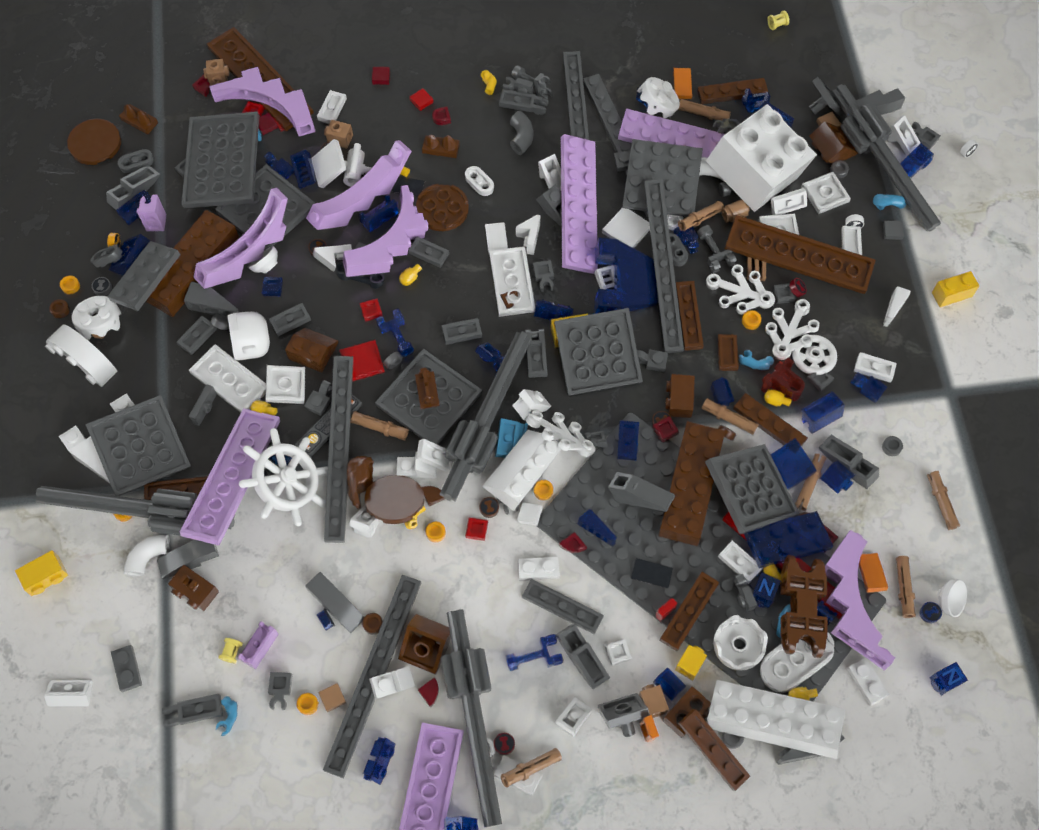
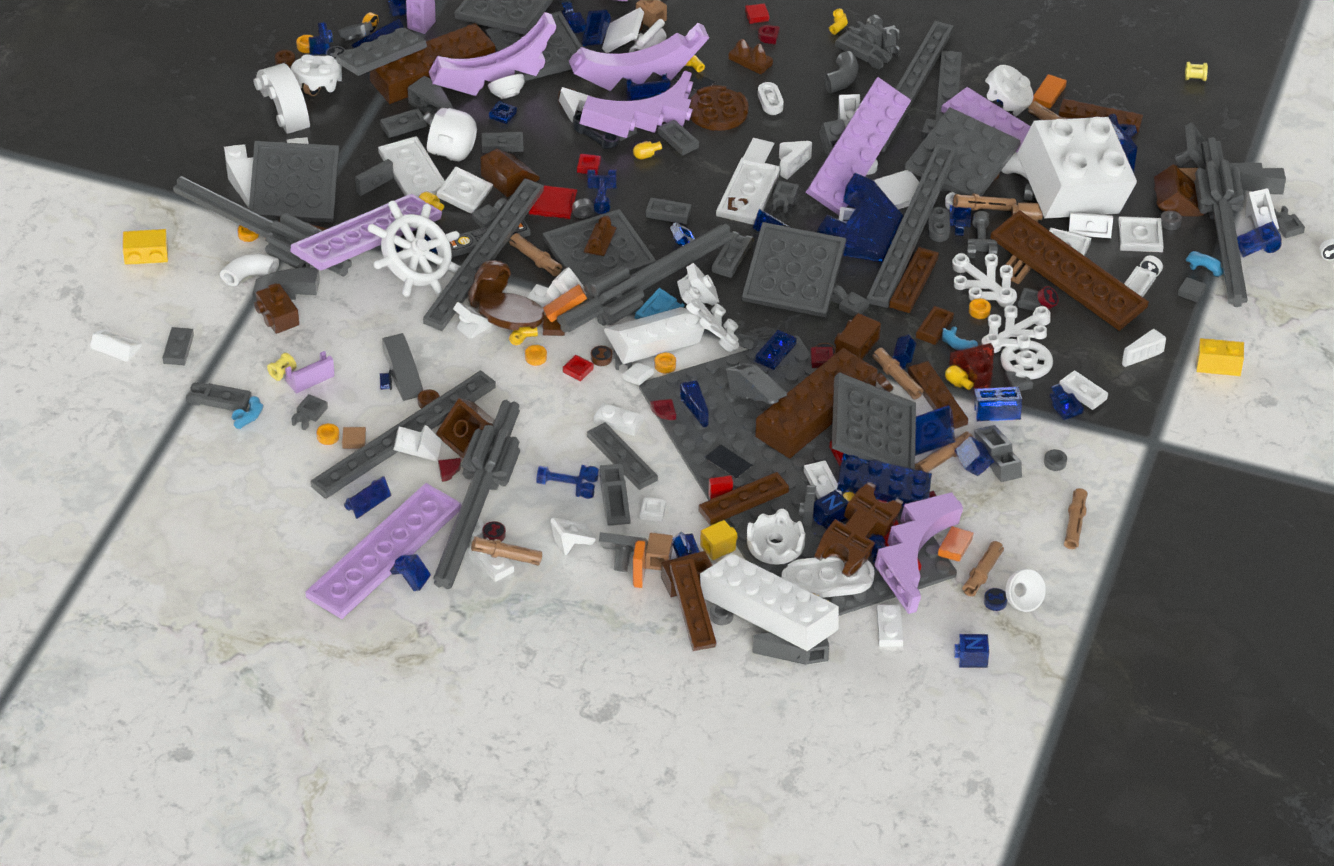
camera: 25 degrees right, 20 degrees down
(84, 282) = (320, 43): none -> clear blue bracket
(436, 473) = (565, 303): none -> orange tile

